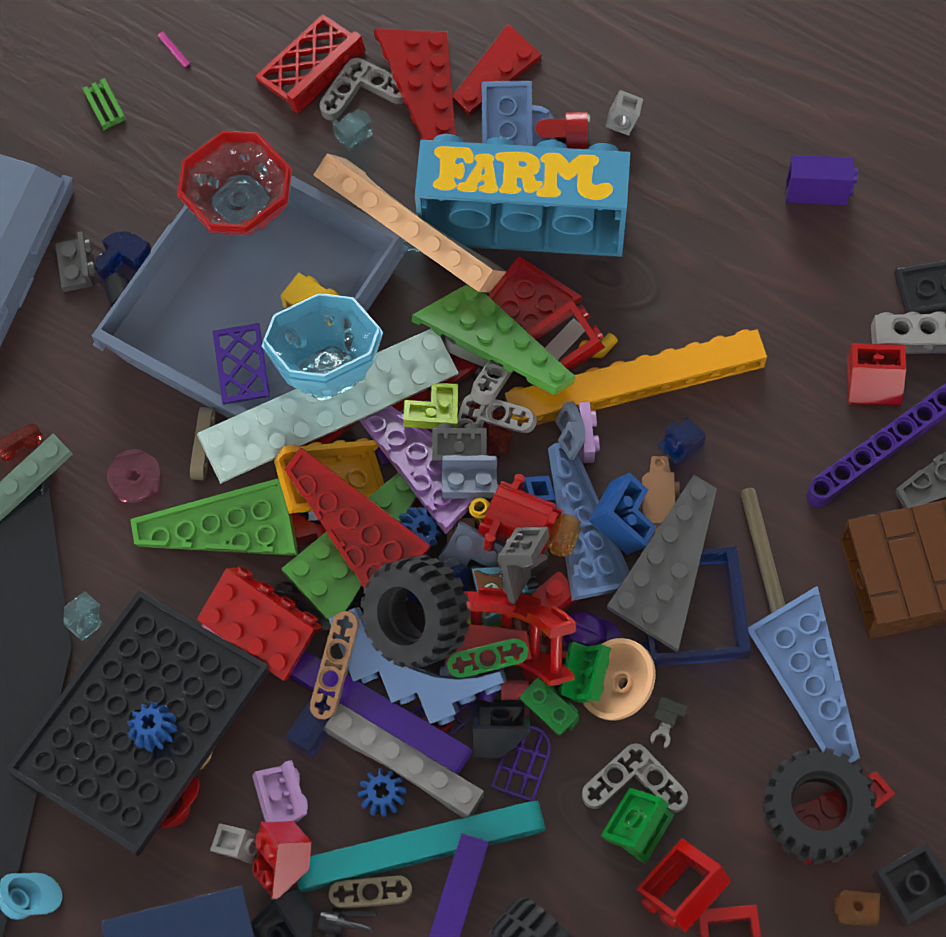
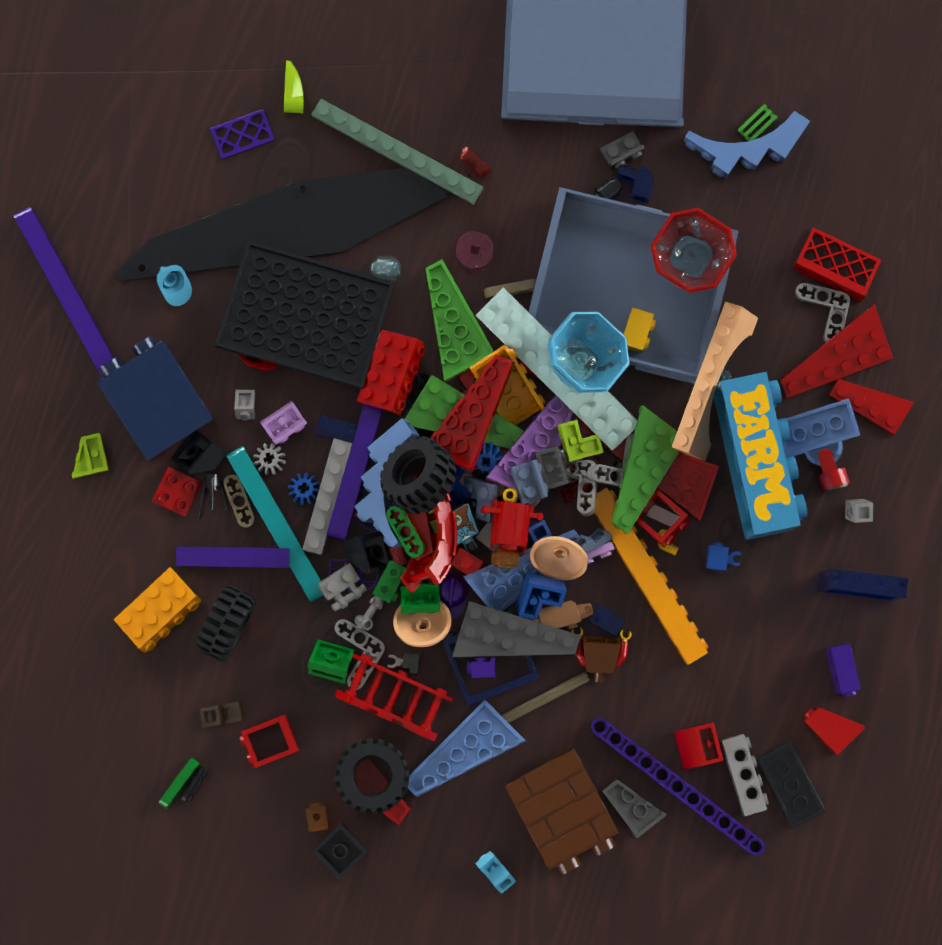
camera: 70 degrees right, 15 degrees up
(82, 615) = (364, 252): clear light blue brick -> none
(114, 594) = (386, 267): none -> clear light blue head
(137, 118) = (750, 153): none -> medium blue arch
(149, 737) = (293, 321): blue gear -> none
(173, 49) = (818, 160): dark pink piece -> none
(221, 354) = (553, 291): dark purple window -> none
(281, 856) = (242, 437): red slope -> none
(330, 663) = (372, 432): medium nougat beam -> none
(333, 822) = (275, 462): none -> light grey gear
(353, 128) = (789, 314): clear light blue brick -> none
(518, 555) = (477, 534): dark grey bracket -> none
(529, 781) = (339, 581): none -> light grey plate
(583, 468) = (559, 558): none -> light nougat dish
(594, 760) = (365, 621): none -> light grey bar
(636, 287) = (718, 557): none -> blue brick
(669, 871) = (303, 688): red window -> none
(704, 613) = (481, 668): none -> dark purple brick
(721, 123) = (863, 584): none -> clear blue window
(724, 459) = (602, 654): none -> reddish brown torso
(730, 767) = (386, 711): none -> red fence
(892, 216) = (832, 729): none -> red slope

